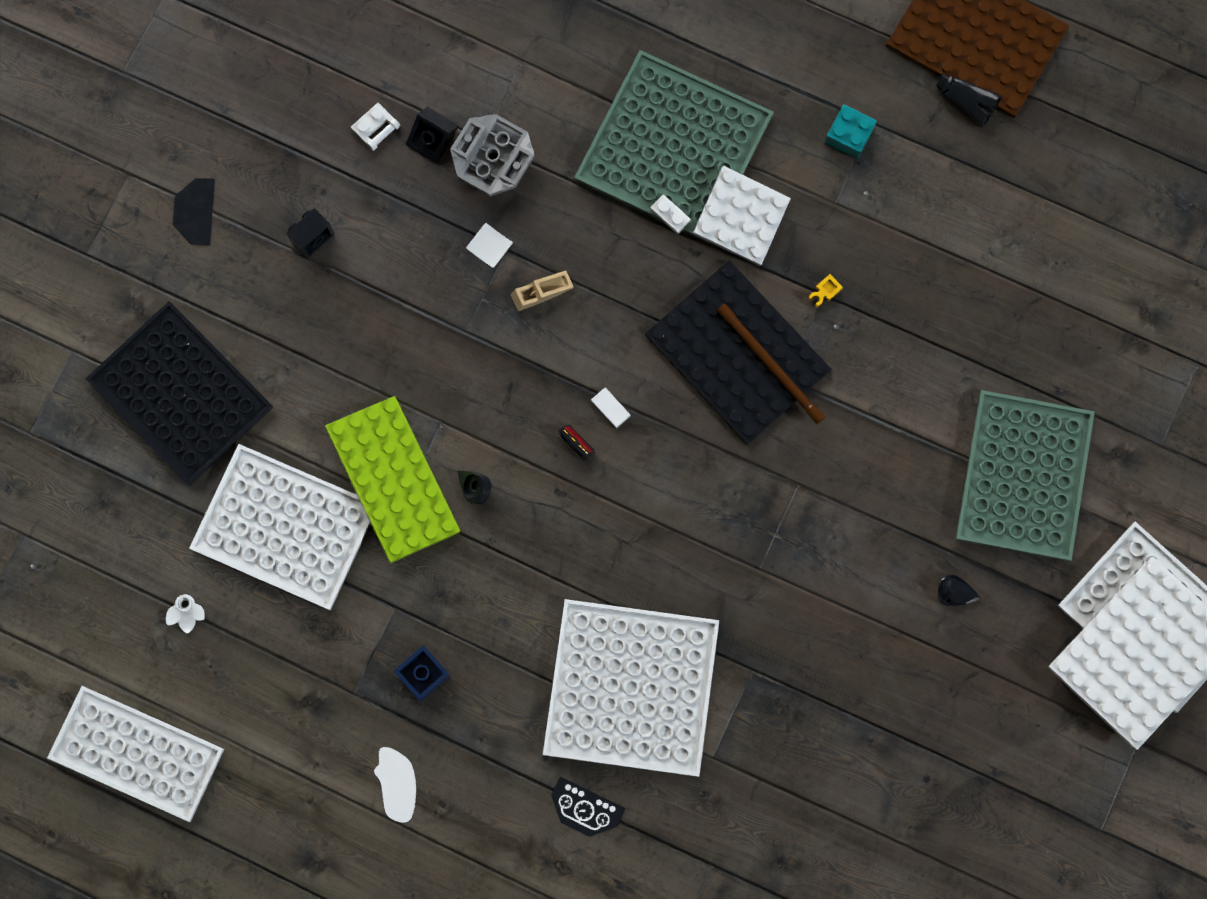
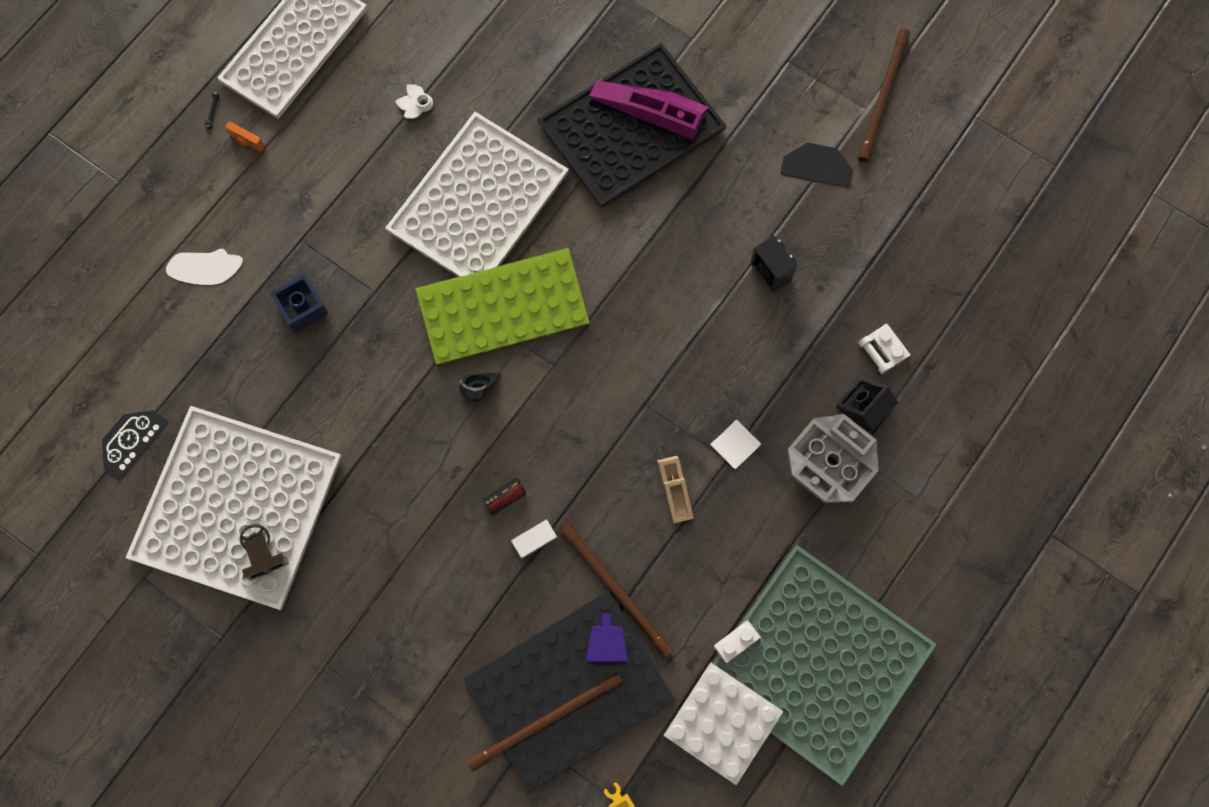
camera: 100 degrees right, 5 degrees down
(53, 149) = (867, 145): none -> reddish brown piece
(159, 371) = (654, 106): none -> magenta wedge
(240, 821) = (208, 124): none -> black hinge
(252, 776) = (244, 137): none -> orange plate
(604, 372) = (657, 640): none -> reddish brown piece
(672, 647) = (259, 554): none -> dark brown piece
(693, 322) = (607, 643): none -> dark purple torso

